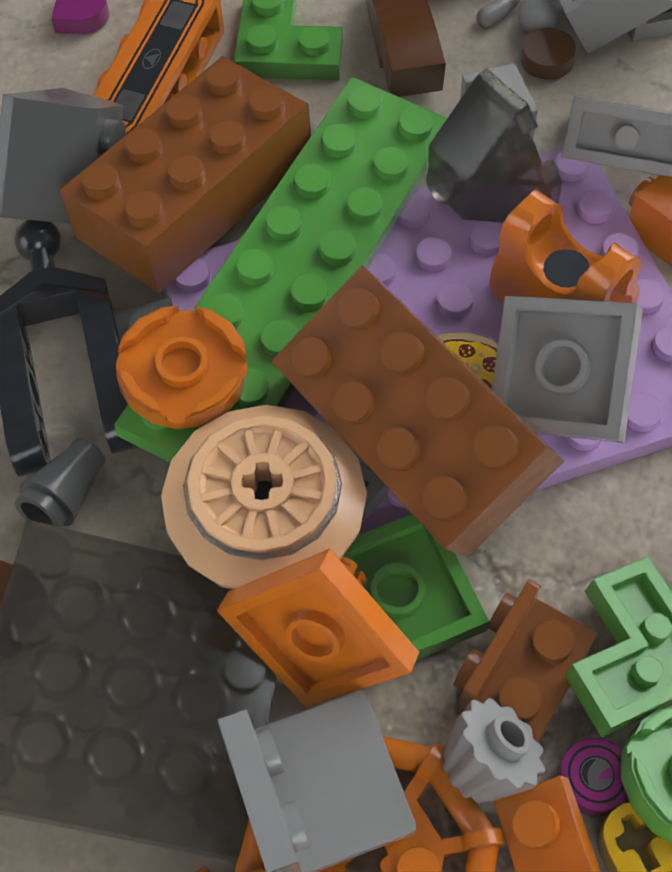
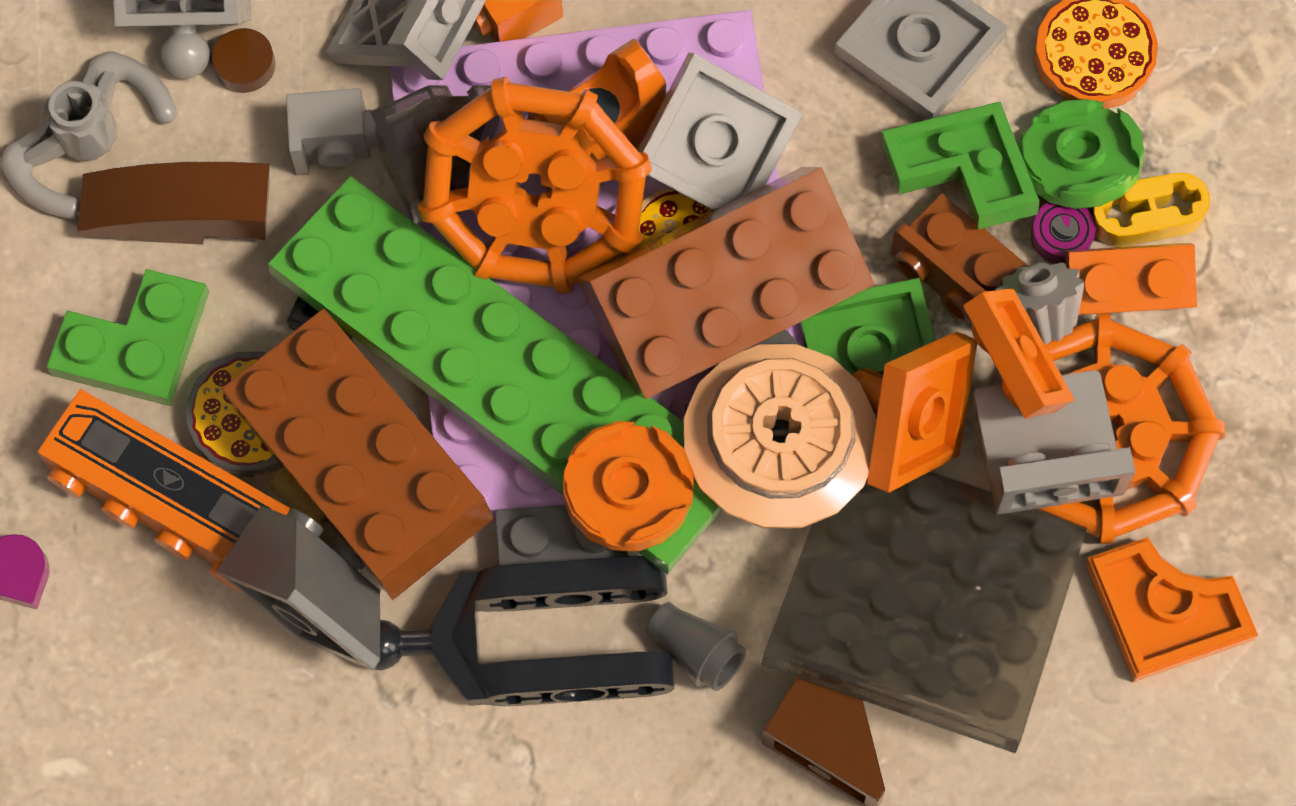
camera: 80 degrees left, 10 degrees up
(402, 719) = (1018, 352): none -> orange plate
(460, 215) = (528, 219): none -> orange plate

